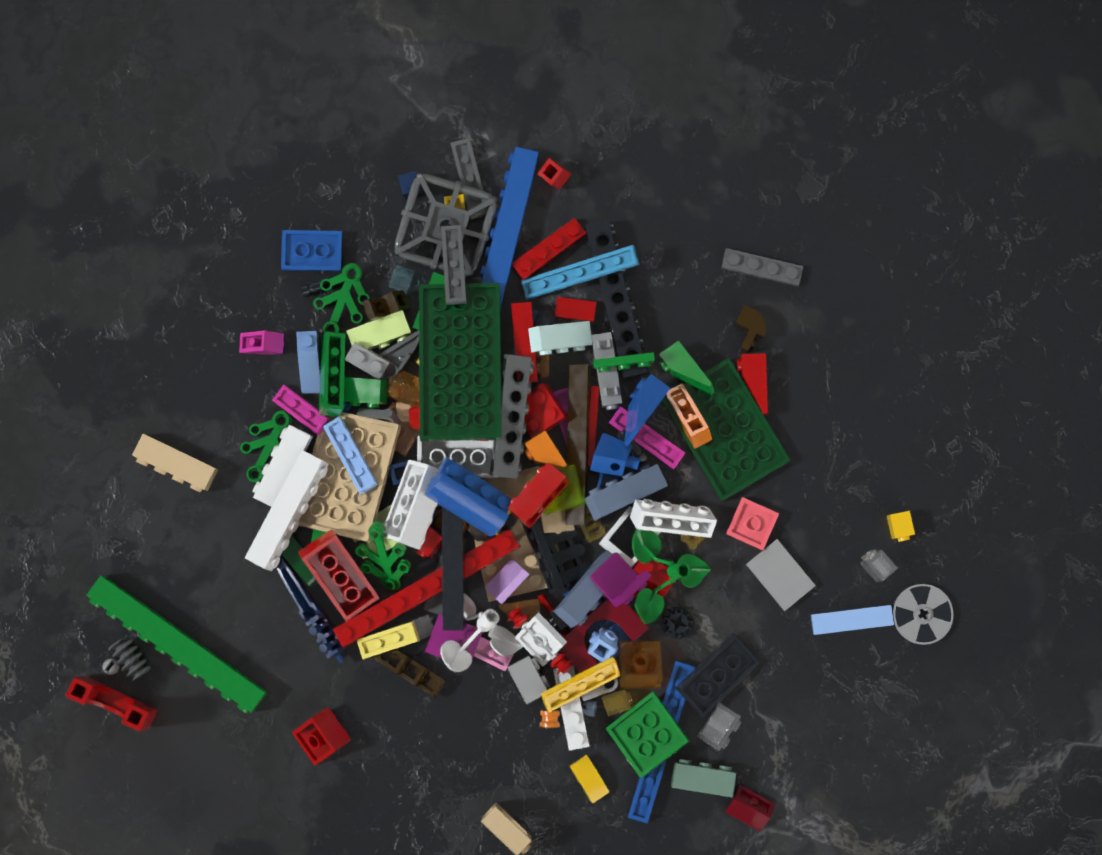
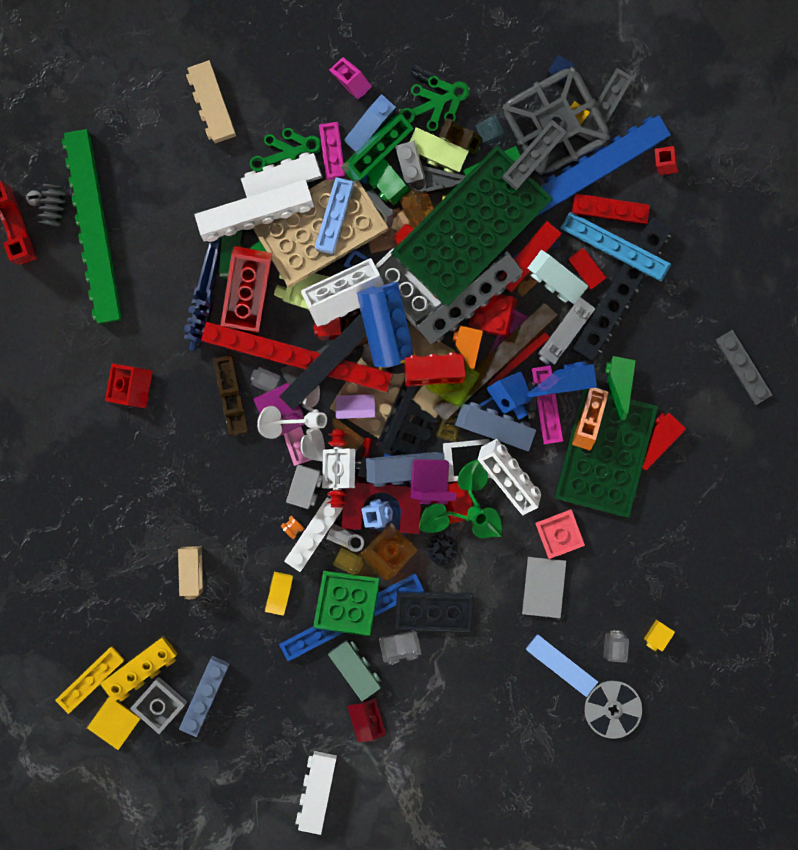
camera: 50 degrees right, 5 degrees up
(311, 250) = (447, 48): blue plate -> none
(388, 640) = (236, 366): light yellow plate -> none
(390, 579) = (277, 326): green plant -> none
(580, 684) = (335, 525): yellow tile -> none
(591, 708) = (326, 548): sand blue hinge -> none
(623, 362) = (583, 338): green plate -> none
(692, 543) = (505, 506): clear yellow plate -> none
(753, 324) = (698, 399): dark brown brick -> none

